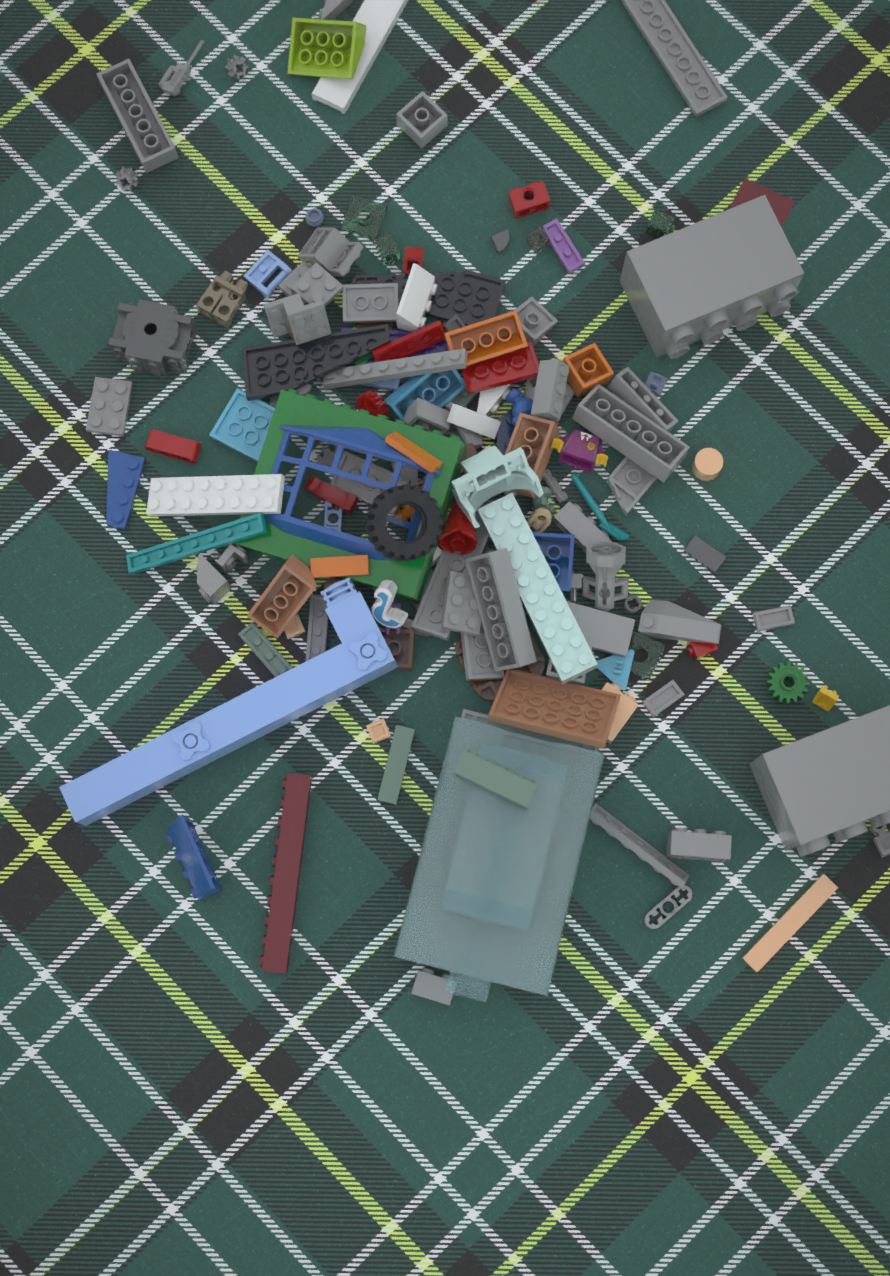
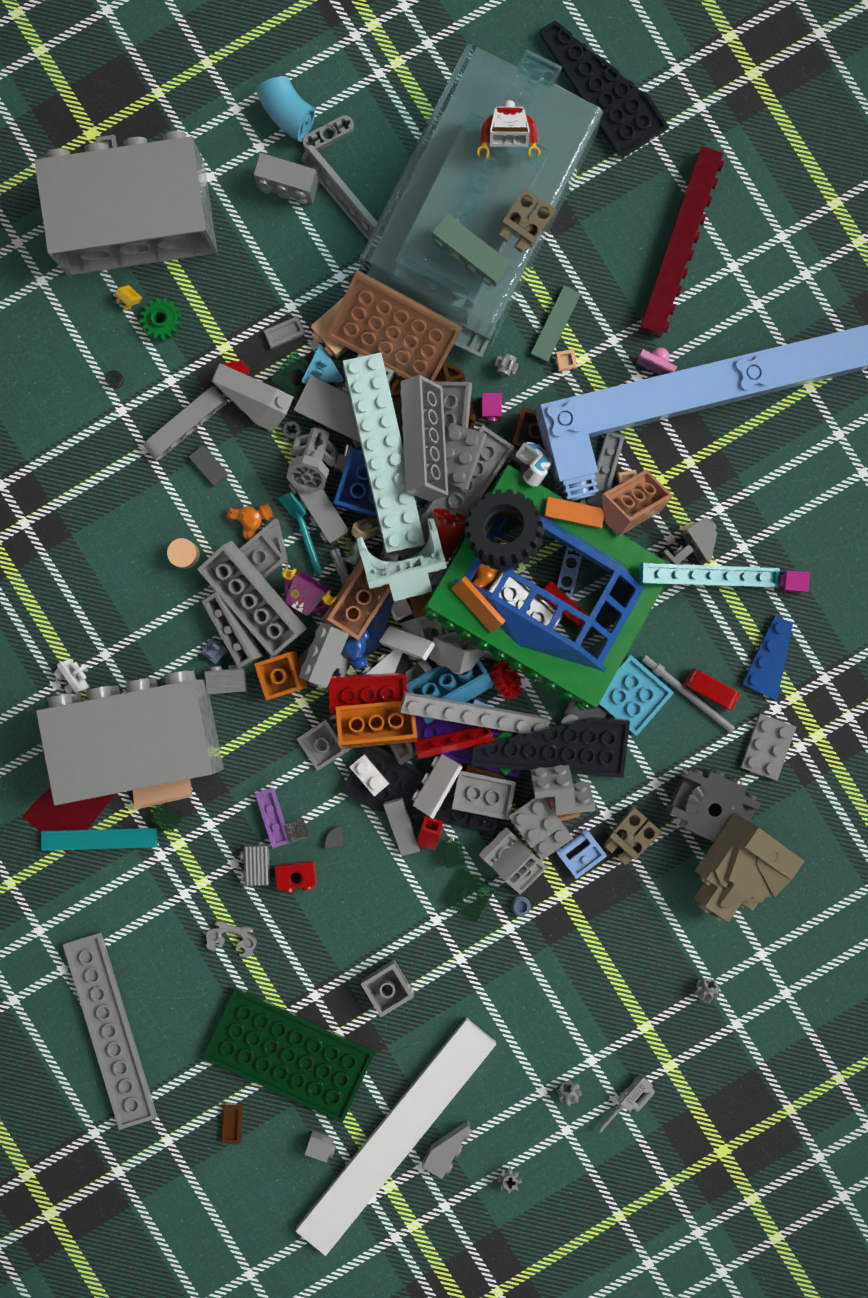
camera: 170 degrees left, 10 degrees up
(111, 563) = (794, 581): none -> dark pink brick
(113, 283) = (743, 869): none -> dark tan panel
(137, 115) = (684, 1058): light grey brick -> none
(194, 858) = (766, 271): blue slope -> none
(216, 495) = (680, 619): white plate -> none
(226, 454) = (659, 670): none -> light grey bar
(264, 650) = (656, 456): sand green tile -> none
(286, 747) = (656, 361): none -> bright pink tile
(325, 47) = (471, 1090): lime slope -> none
(383, 1004) = (628, 113): none -> black wing
(436, 711) = (506, 365): none -> light grey gear
(441, 261) = (401, 826): none -> light grey tile
(442, 667) = (491, 407): none -> dark pink brick
(447, 814) = (522, 226): none -> dark tan hips
(482, 299) = (369, 775): none -> white plate
(484, 909) = (509, 128): none -> torso
(498, 48) = (289, 1054): none -> dark green plate
(567, 201) = (256, 865): none -> light grey brick
(591, 135) = (215, 936): none -> light grey helmet
(638, 356) = (225, 681): none -> light grey brick
(651, 511) = (250, 518): none -> orange animal
(716, 919) = (286, 107): none -> medium azure brick
(719, 195) = (99, 839): none -> teal tile
(738, 586) = (185, 423): none -> light grey beam
(773, 618) = (157, 387): light grey tile -> none
(782, 332) = (74, 676): none -> white hips
(789, 923) = (218, 95): light nougat tile -> none
(812, 620) = (113, 373): none -> clear smoke bush

